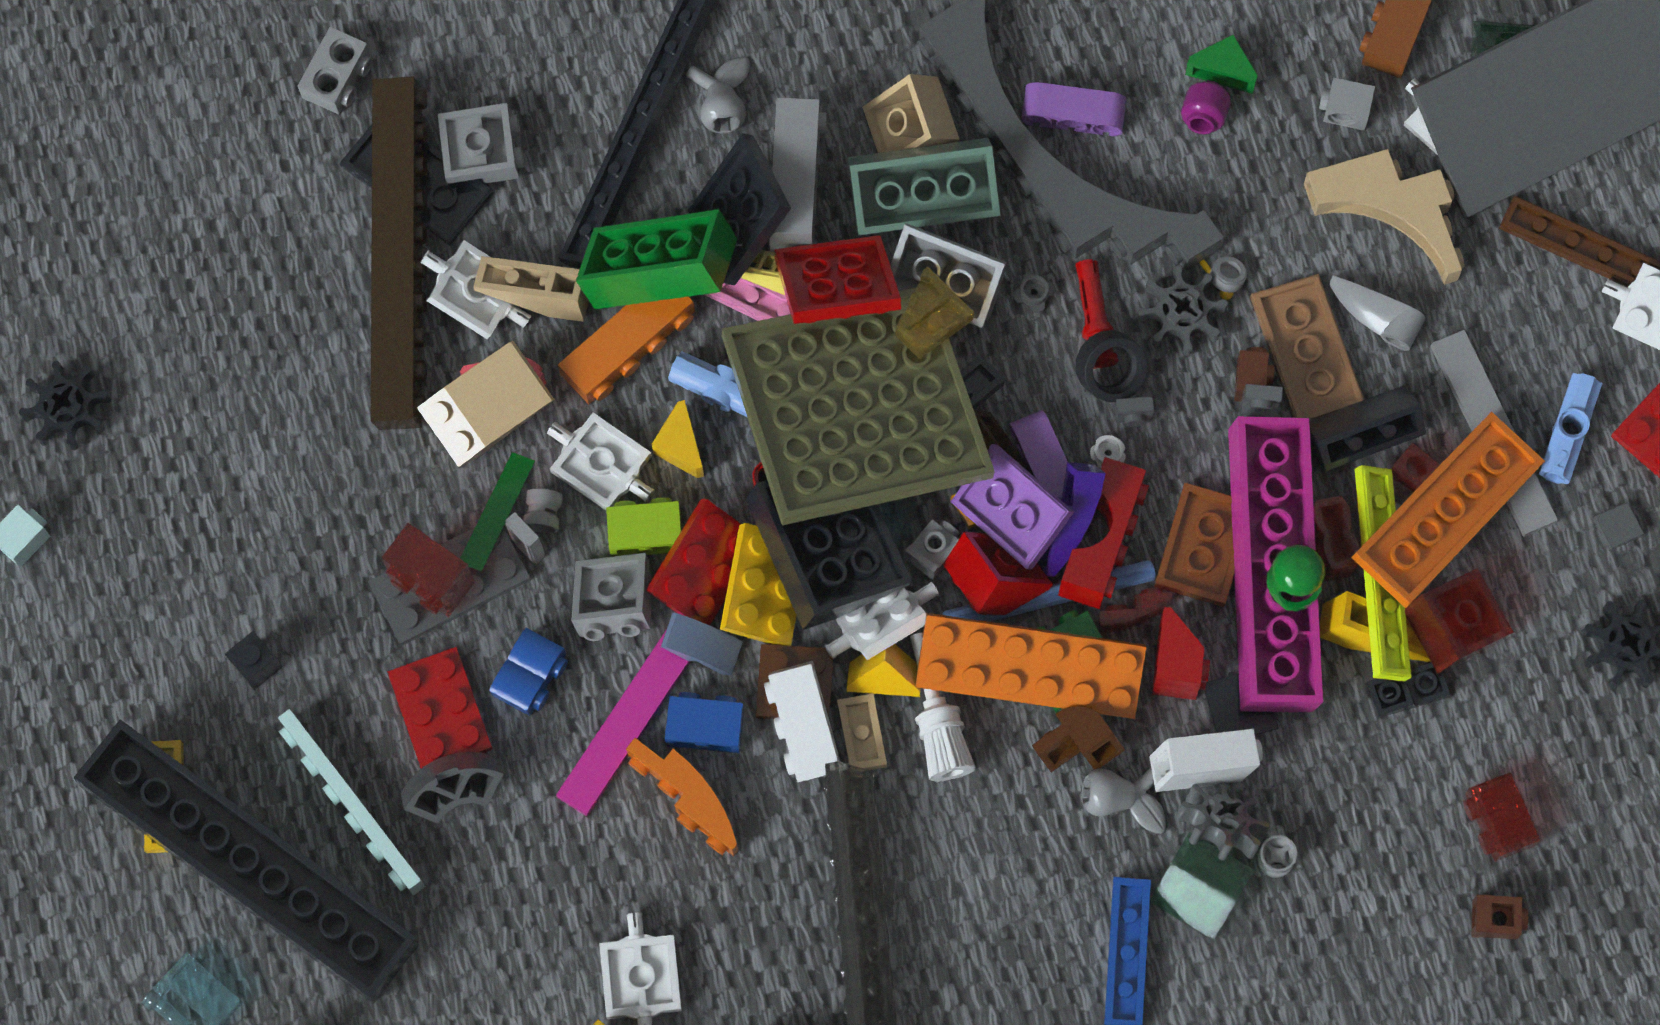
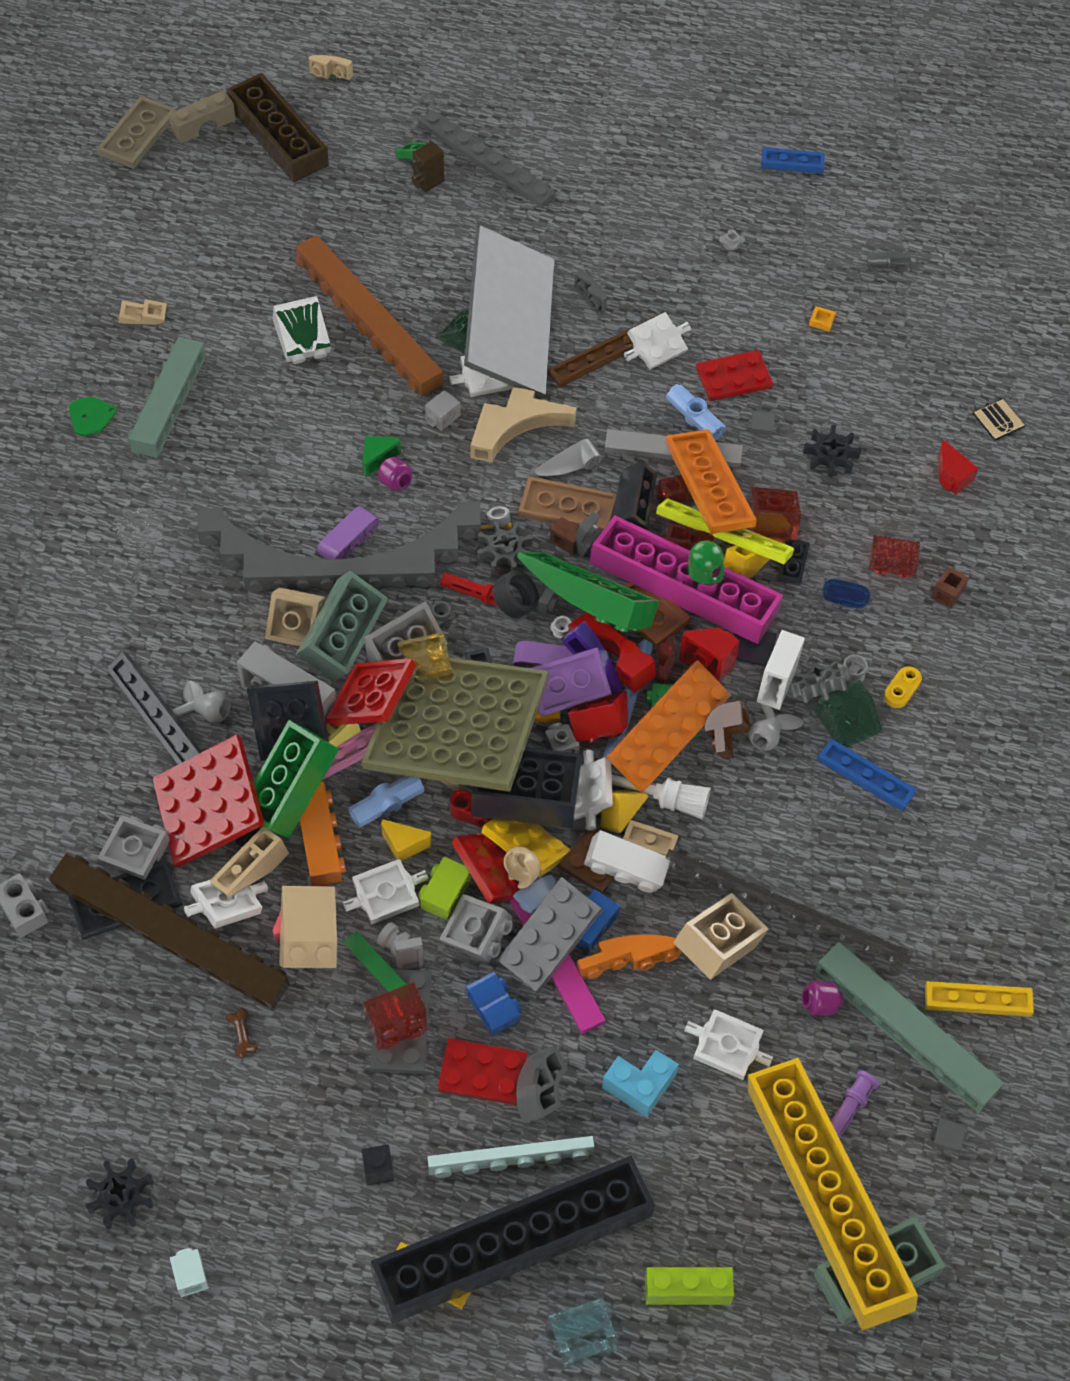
camera: 65 degrees left, 15 degrees down
(317, 425) = (244, 1044): none -> reddish brown piece
(518, 904) = (640, 1087): none -> medium azure brick
(584, 186) = (208, 801): none -> plate
(650, 686) = (550, 935): none -> plate
(714, 600) = (522, 866): none -> tan hair
(766, 889) = (720, 936): none -> tan brick
(1169, 453) = (592, 592): none -> green slope
(1298, 933) = (904, 686): none -> yellow plate
(1401, 784) = (846, 593): none -> clear blue tile

